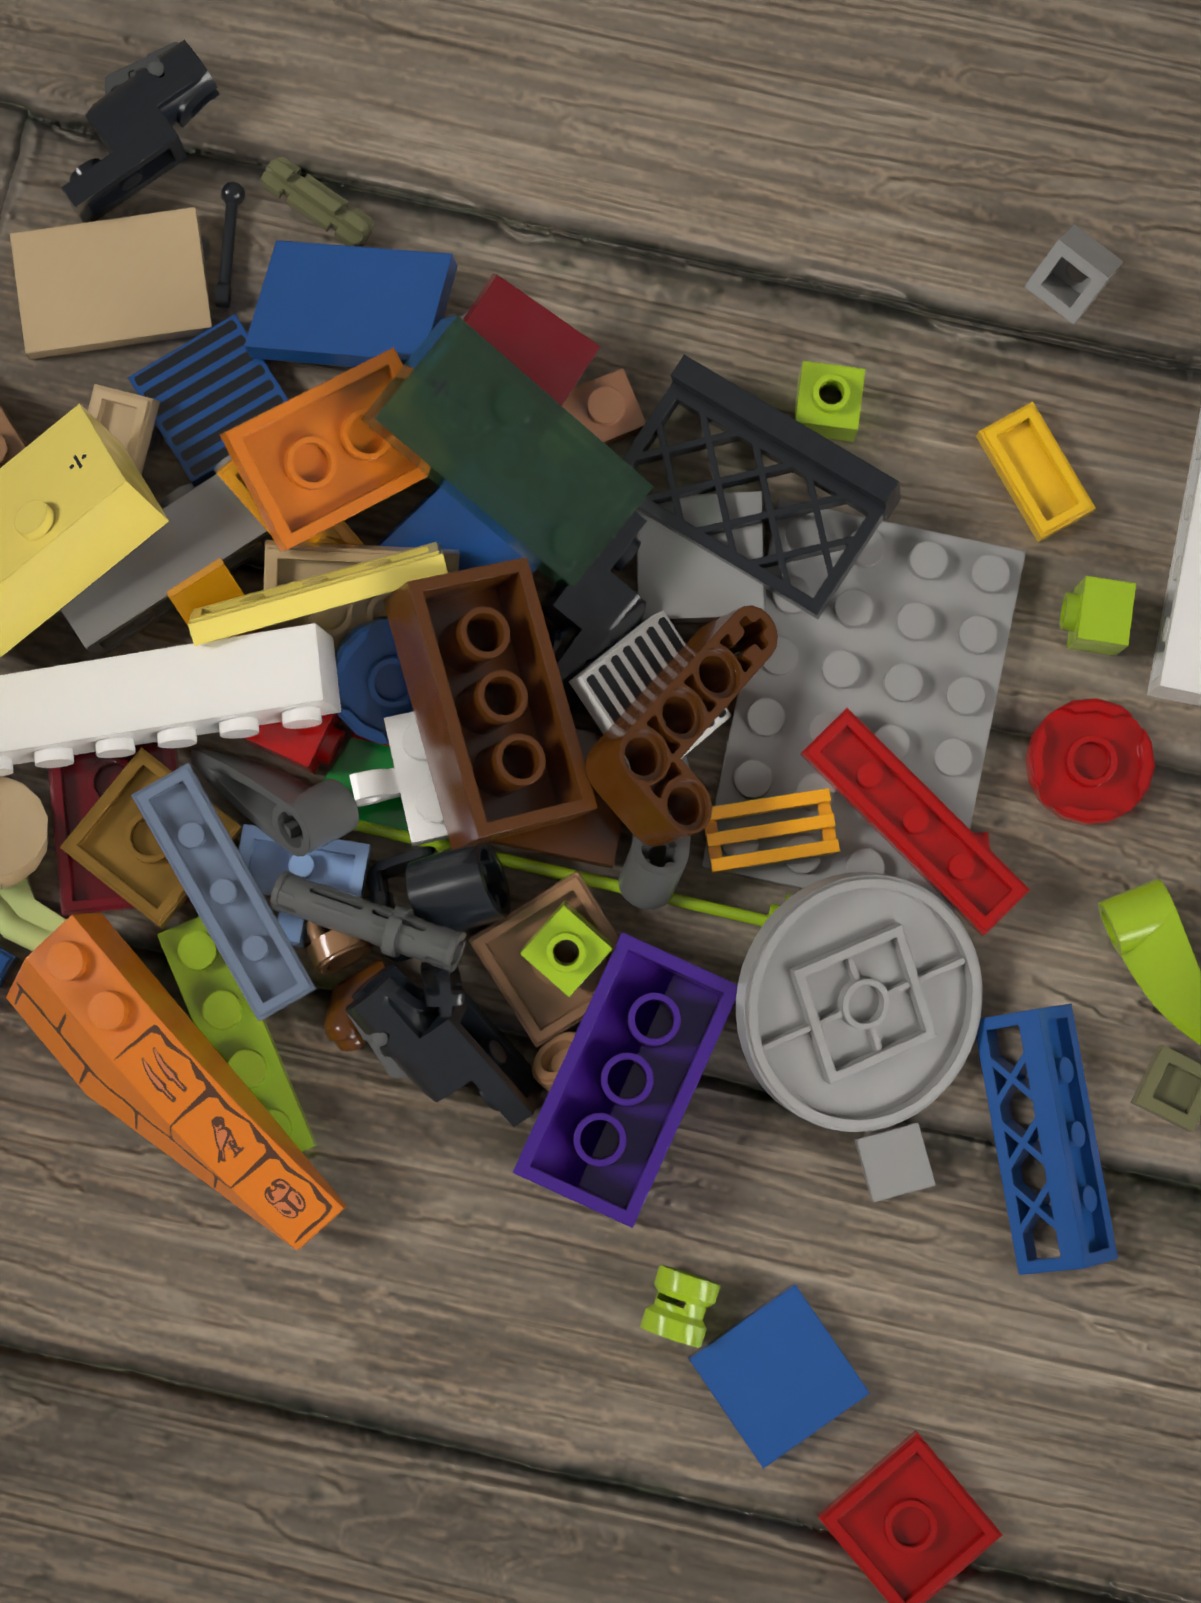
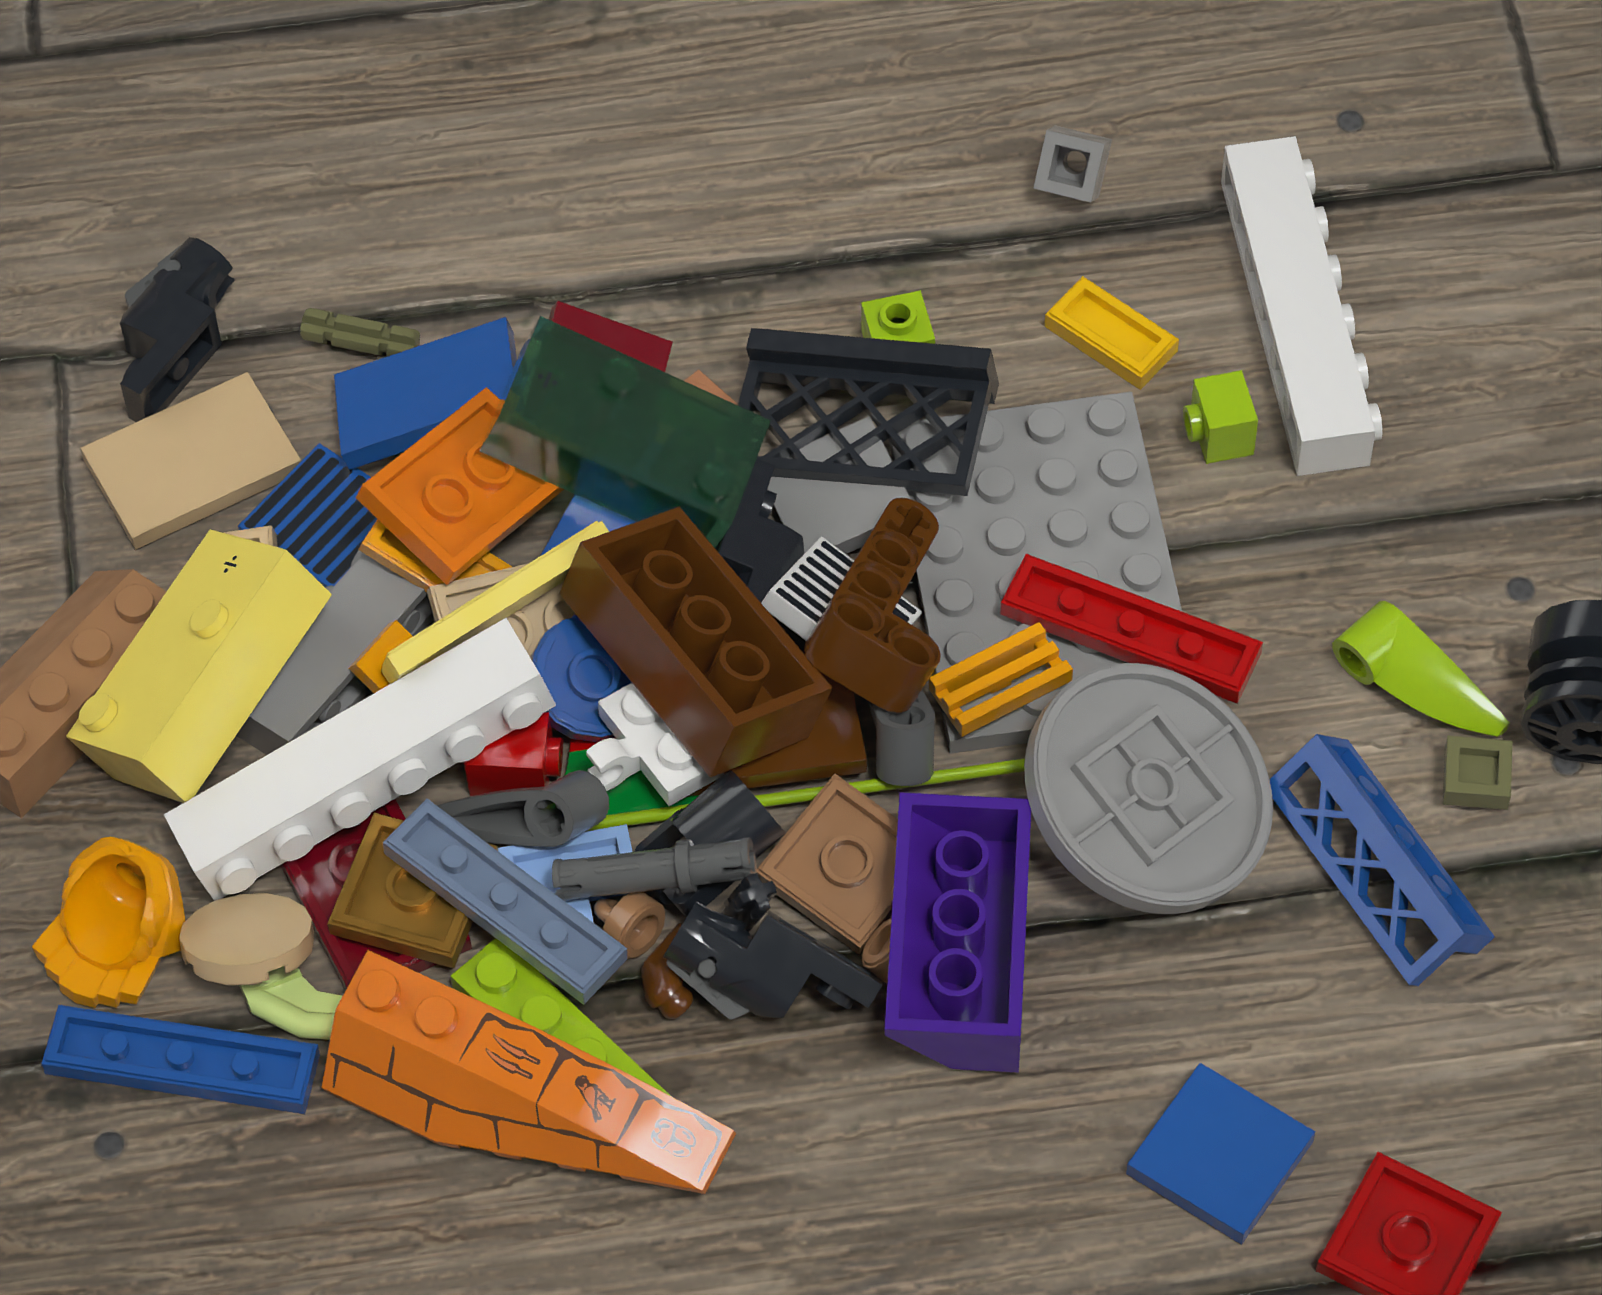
camera: 15 degrees left, 25 degrees down
(232, 195) = (278, 356): black hinge -> none
(570, 925) = (848, 850): lime plate -> none
(675, 1320) = (1097, 1117): lime wheel -> none
(894, 1162) = (1246, 930): light grey tile -> none
(1089, 762) = (1270, 542): red tile -> none

